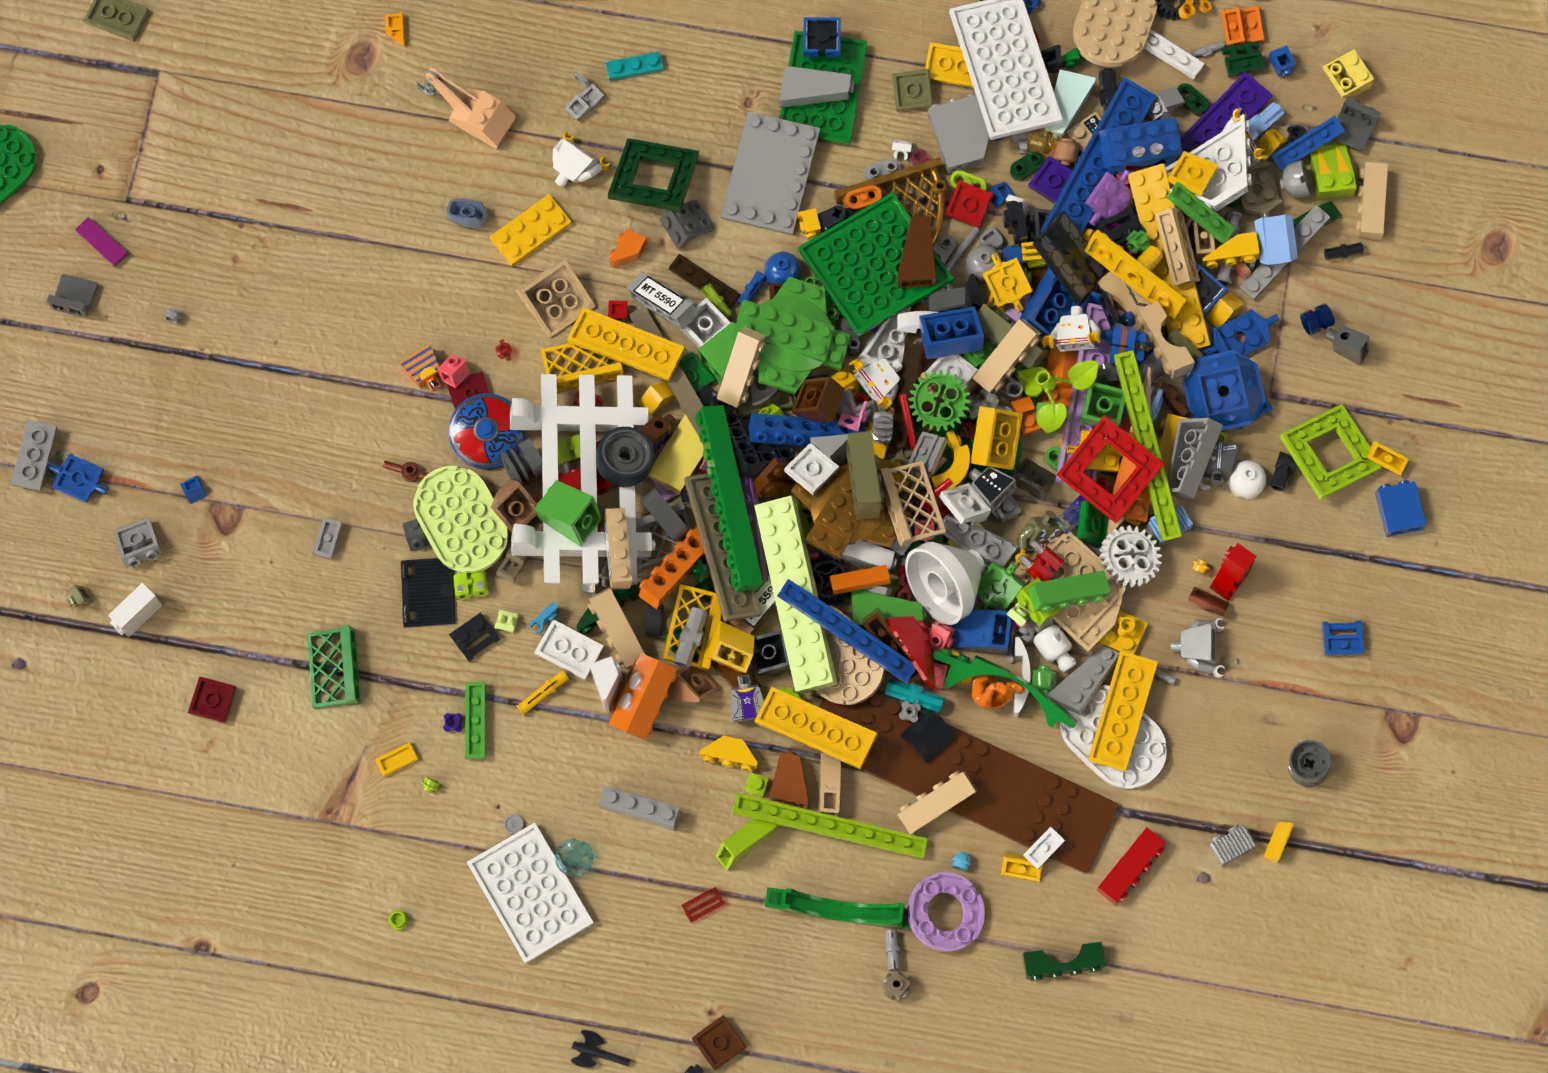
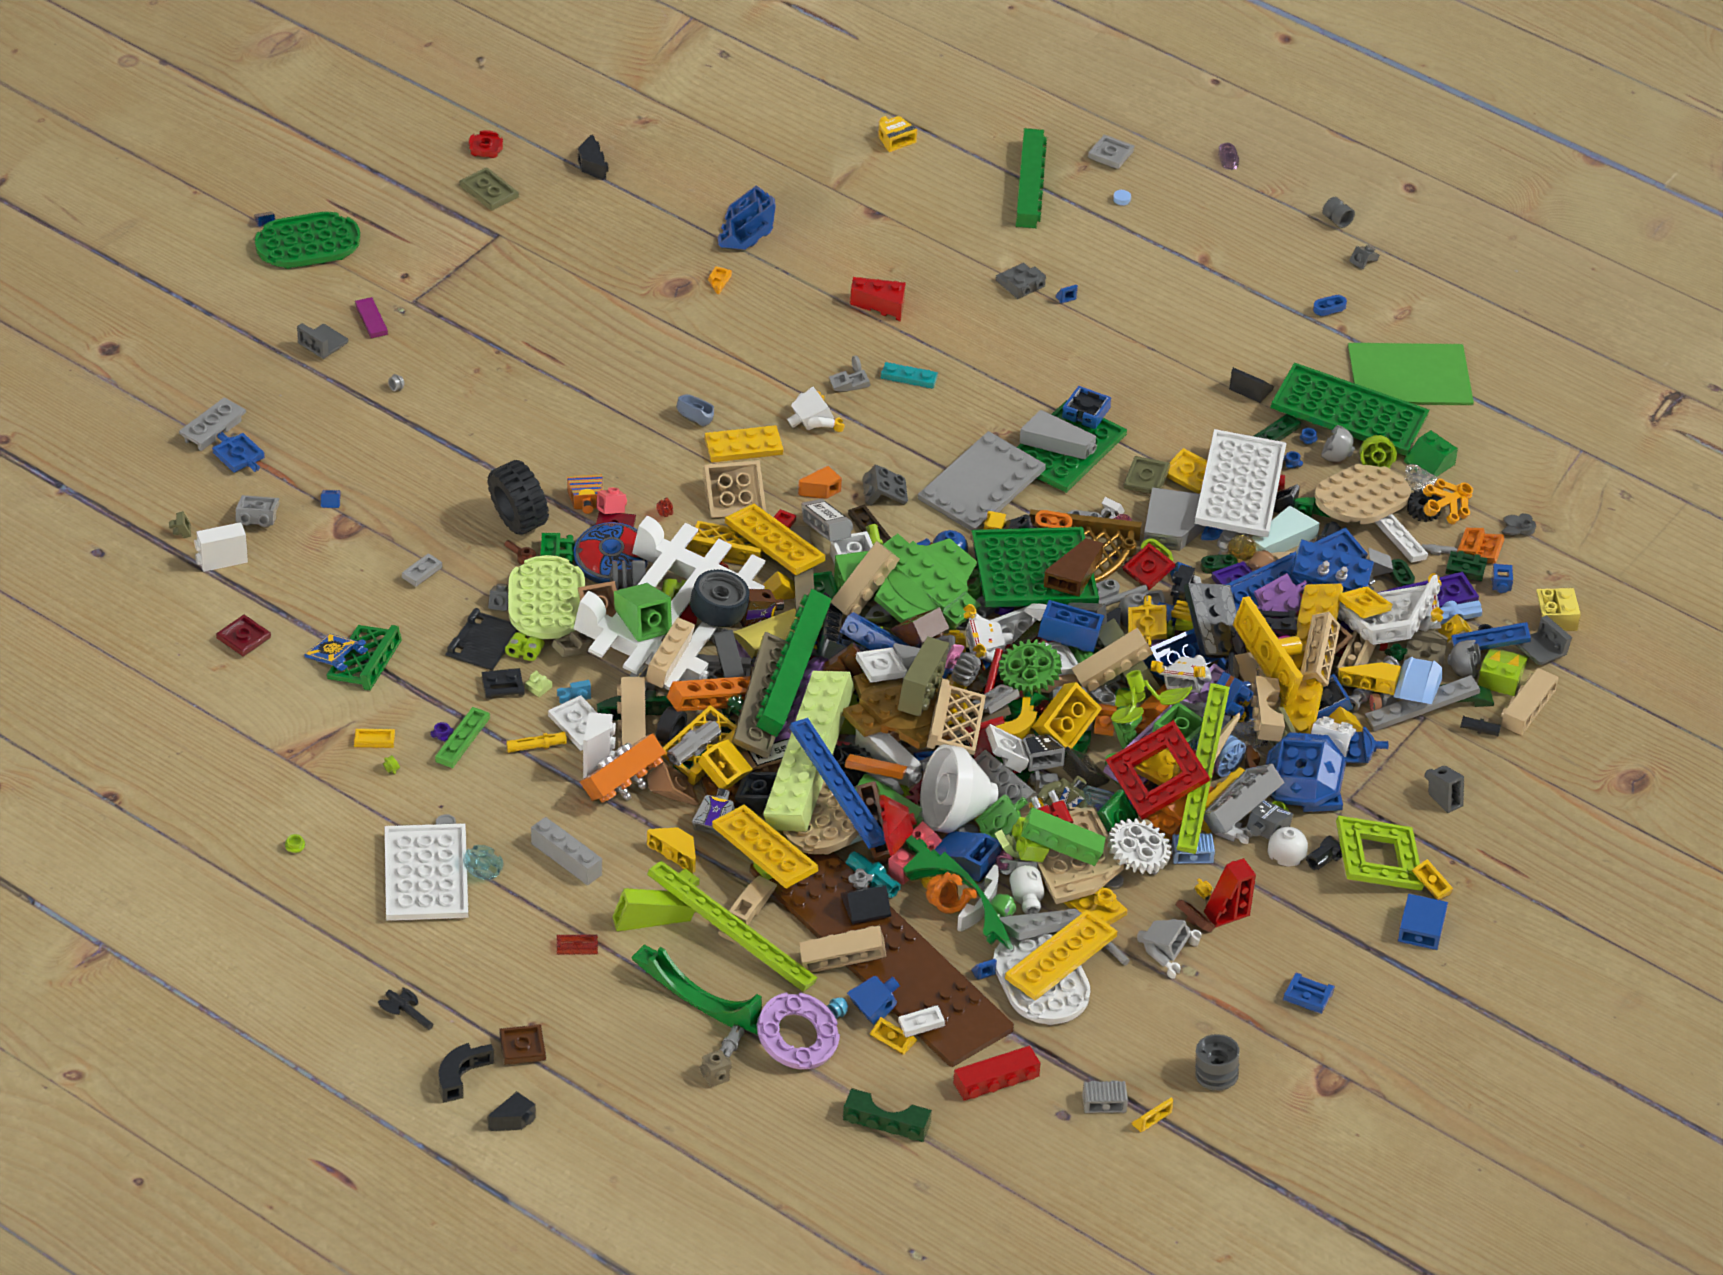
camera: 20 degrees right, 30 degrees down
(302, 675) = (333, 649): none -> flag
(375, 420) = (518, 497): none -> black tyre
(428, 452) = (551, 546): none -> green plate
(475, 112) = (749, 349): light nougat slope -> none
(636, 150) = (903, 447): dark green plate -> none
(789, 782) = (718, 882): dark orange slope -> none
(990, 840) = (874, 998): none -> blue torso
(1060, 752) = (985, 969): none -> blue slope
(1138, 241) = (1285, 629): bright green gear -> none
(1200, 212) = (1355, 632): bright green plate -> none
(1230, 334) = (1339, 733): none -> white bracket
(1319, 318) = (1424, 760): clear blue wheel -> none

